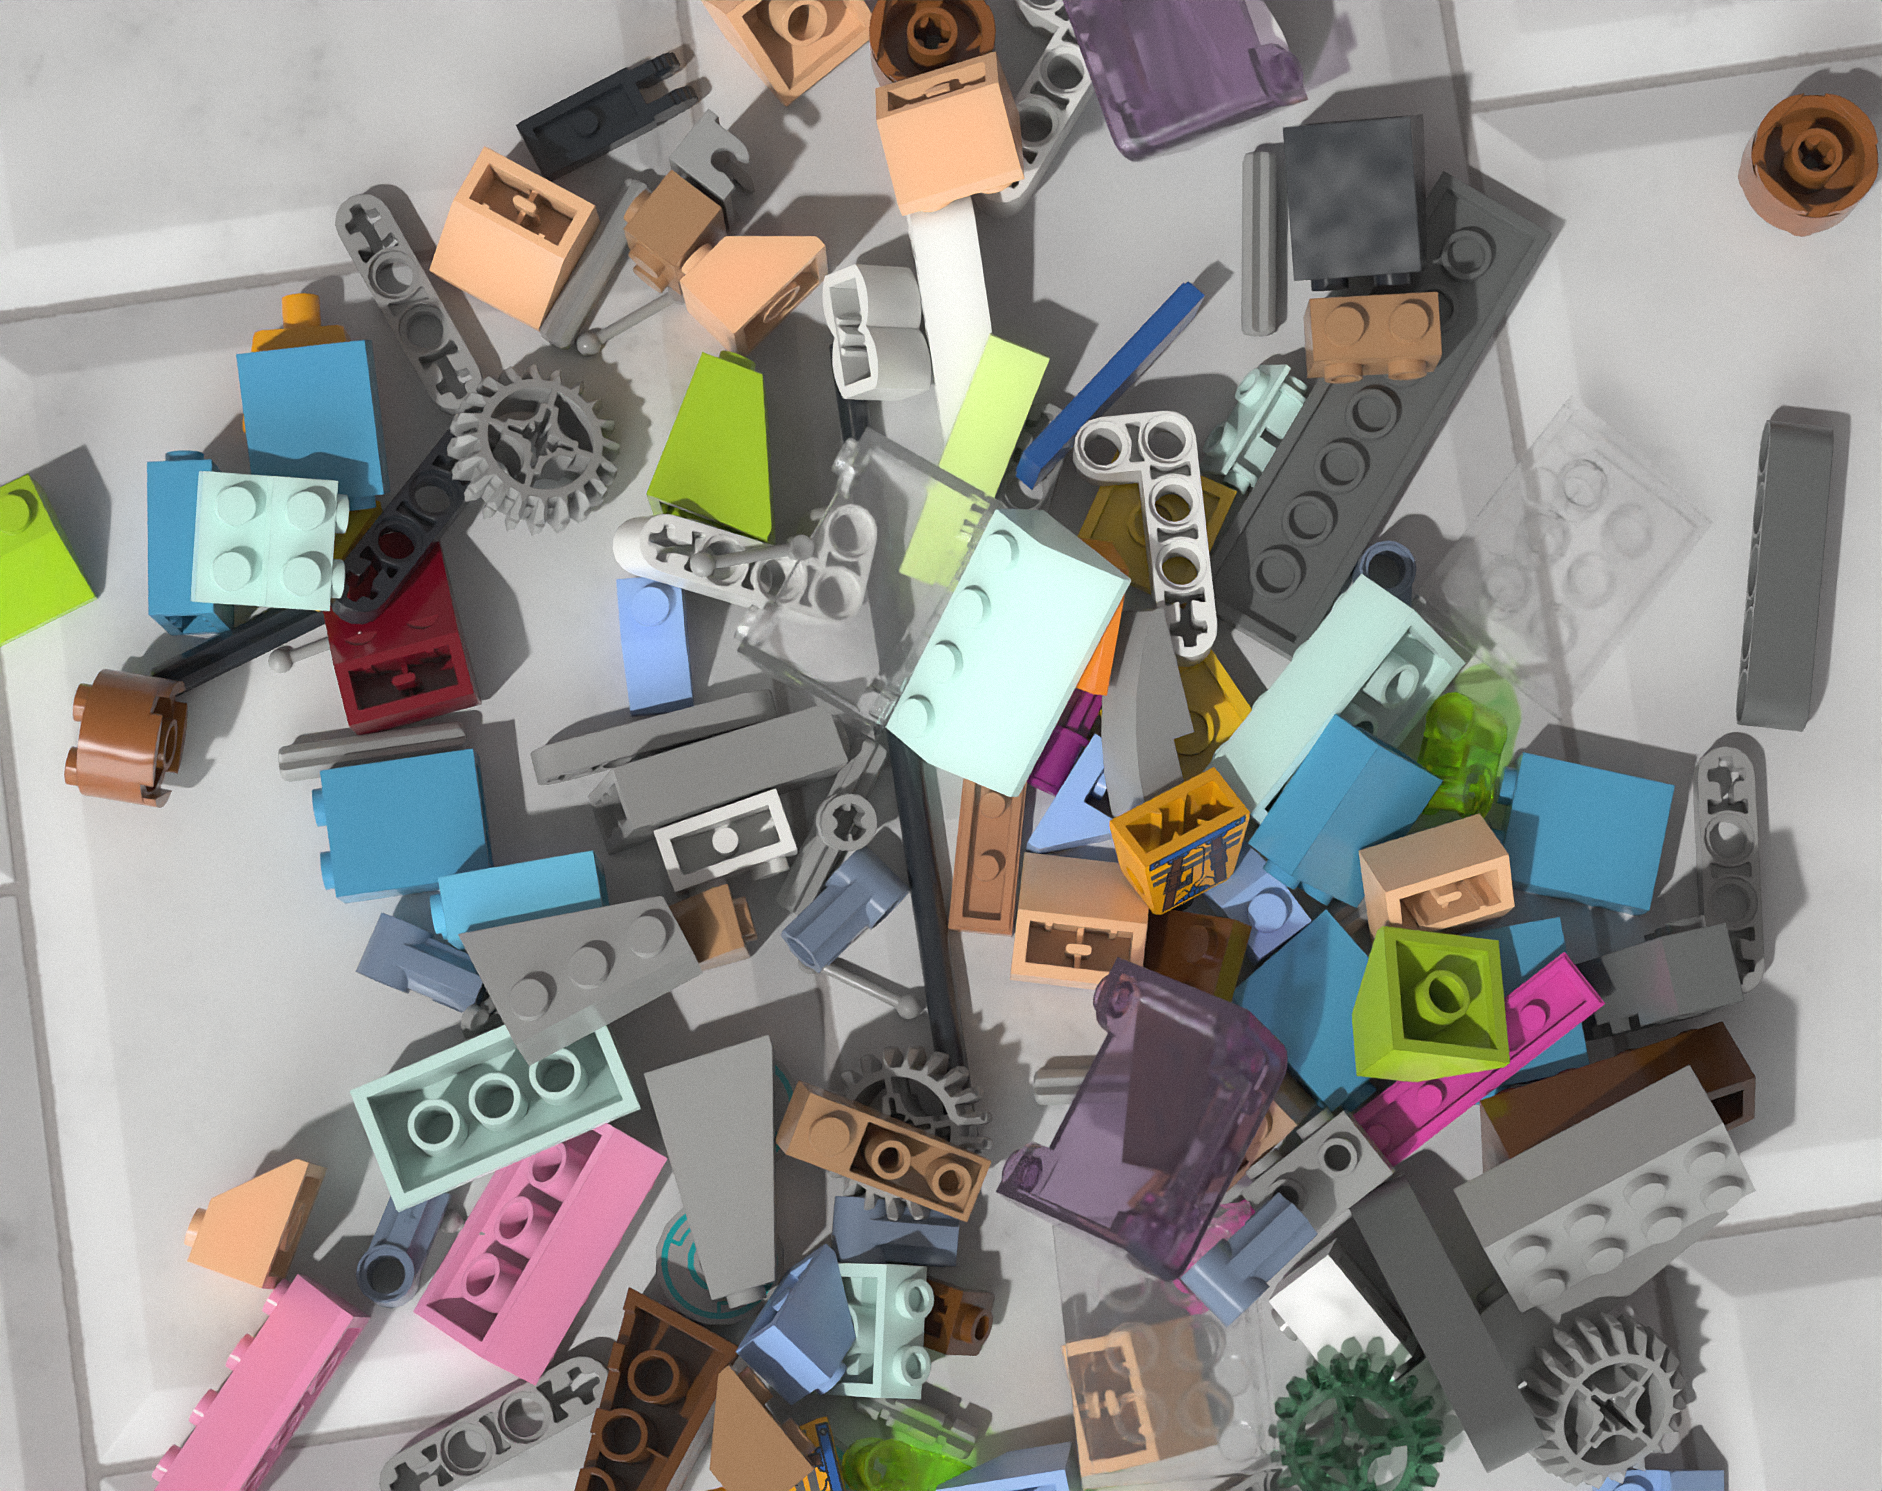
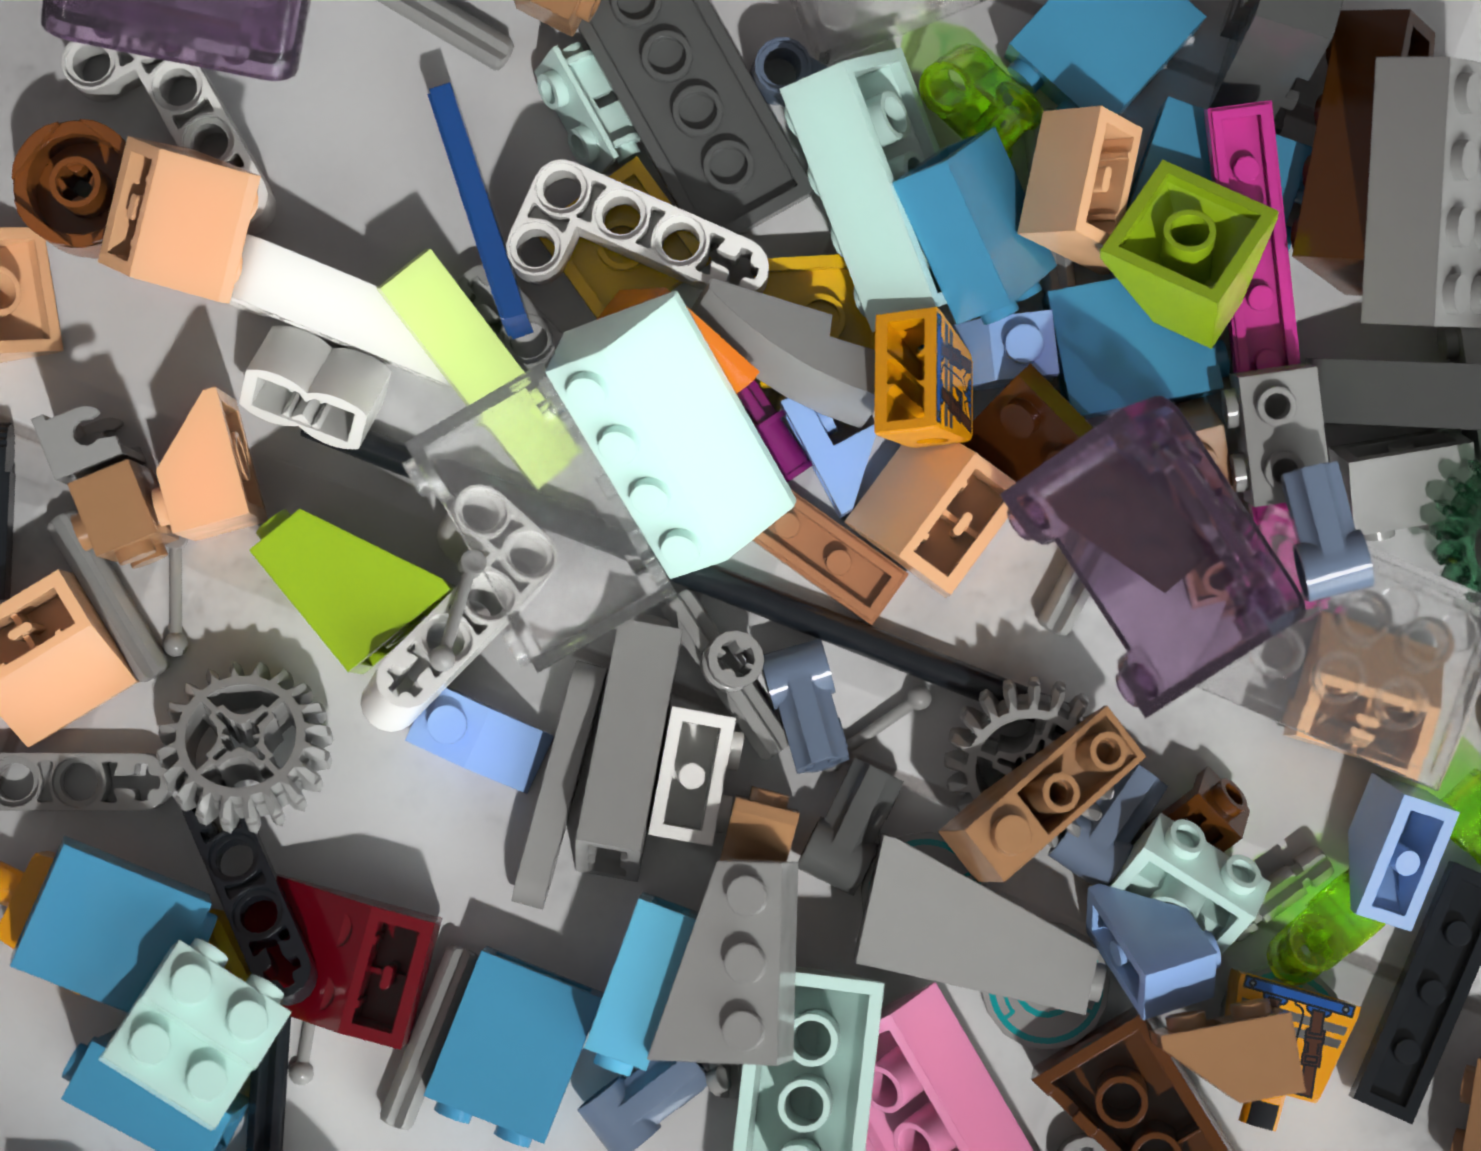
camera: 60 degrees left, 5 degrees up
(744, 1009) = (845, 839): none -> dark grey piece

